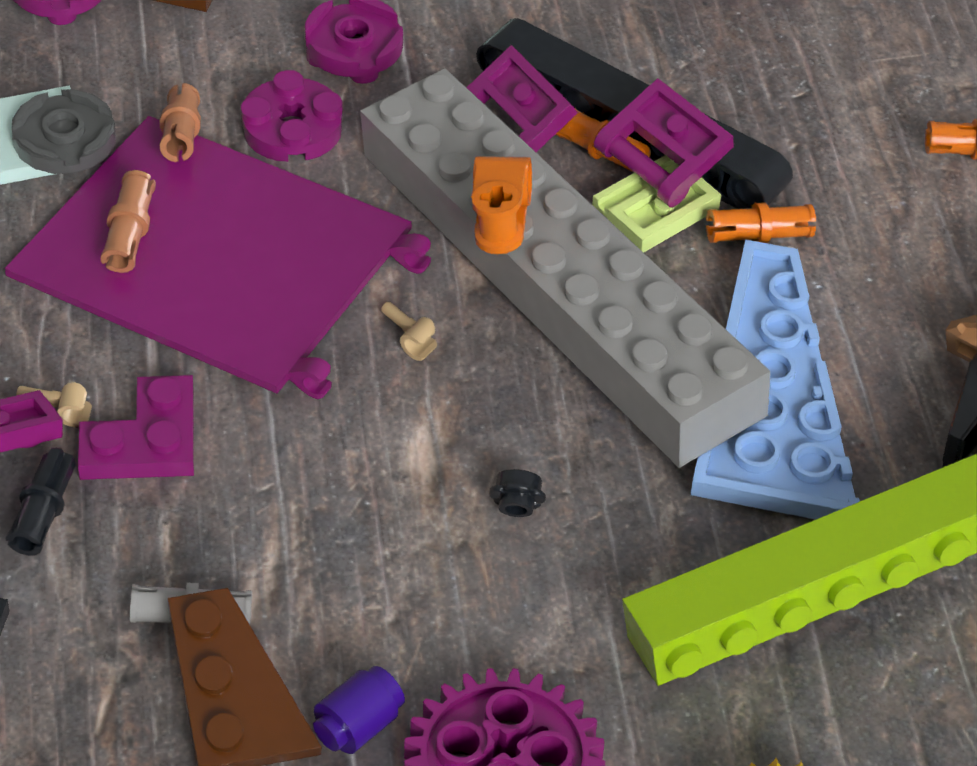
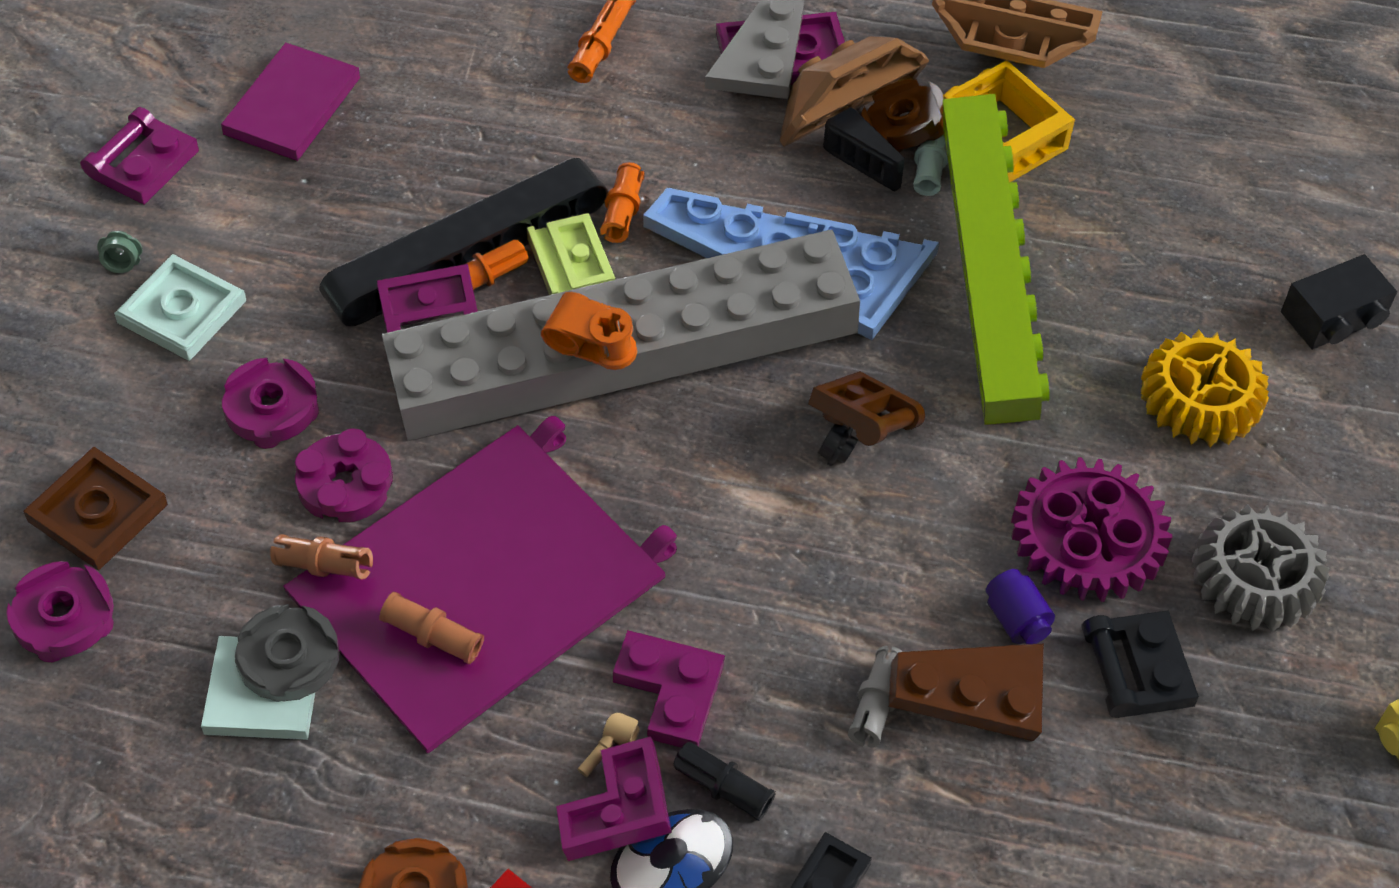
camera: 70 degrees left, 5 degrees up
(417, 336) = (644, 456): tan hand -> none
(577, 485) = (858, 399): none -> reddish brown plate
(675, 130) = (532, 207): magenta plate -> none

